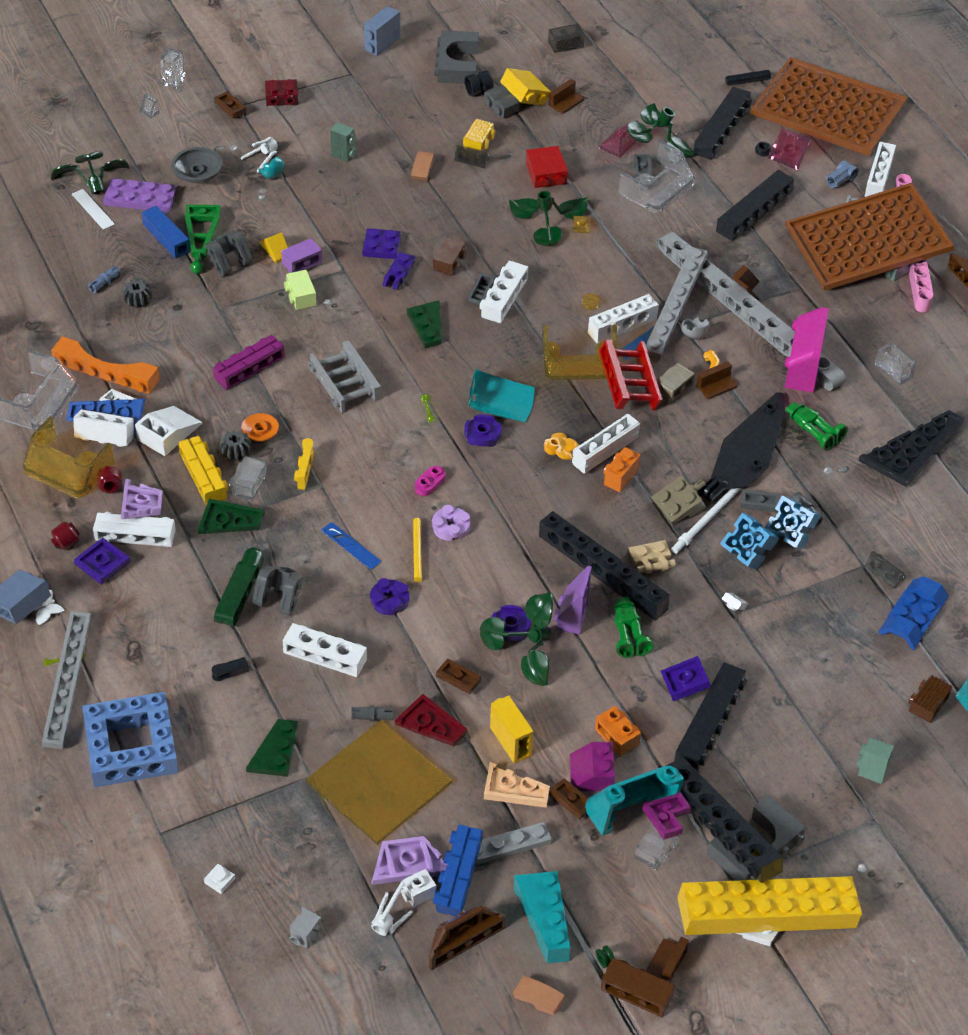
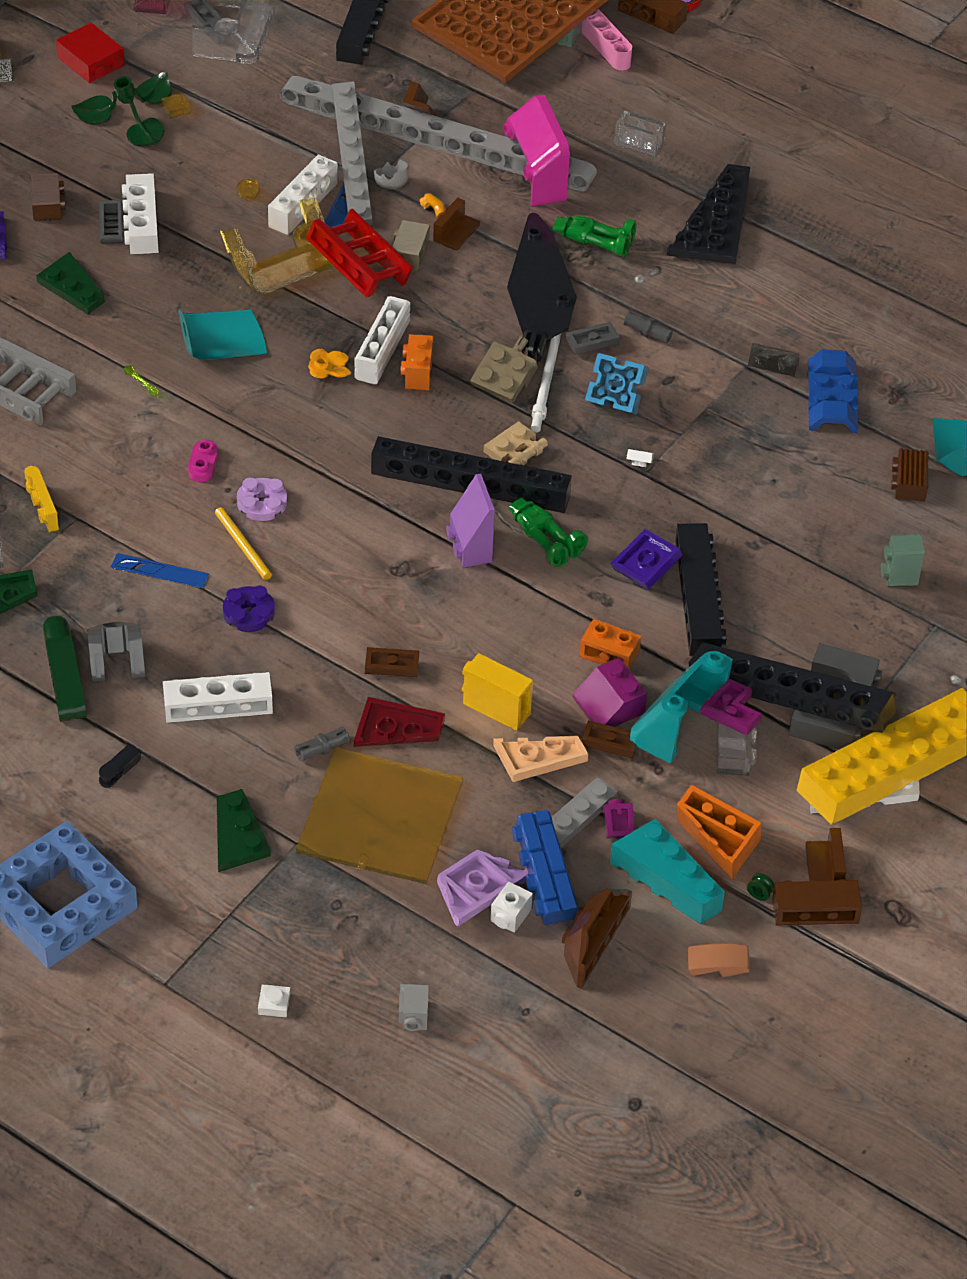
camera: 30 degrees left, 0 degrees up
(383, 922) = (497, 962): white plant -> none
(473, 431) = (220, 391): dark purple plate -> none
(519, 618) = (409, 592): dark purple plate -> none
(537, 859) = (618, 818): none -> magenta bracket
(539, 610) = (449, 545): dark green plant -> none
(602, 900) = (719, 828): none -> orange wedge
(792, 522) = (649, 344): dark azure brick -> none

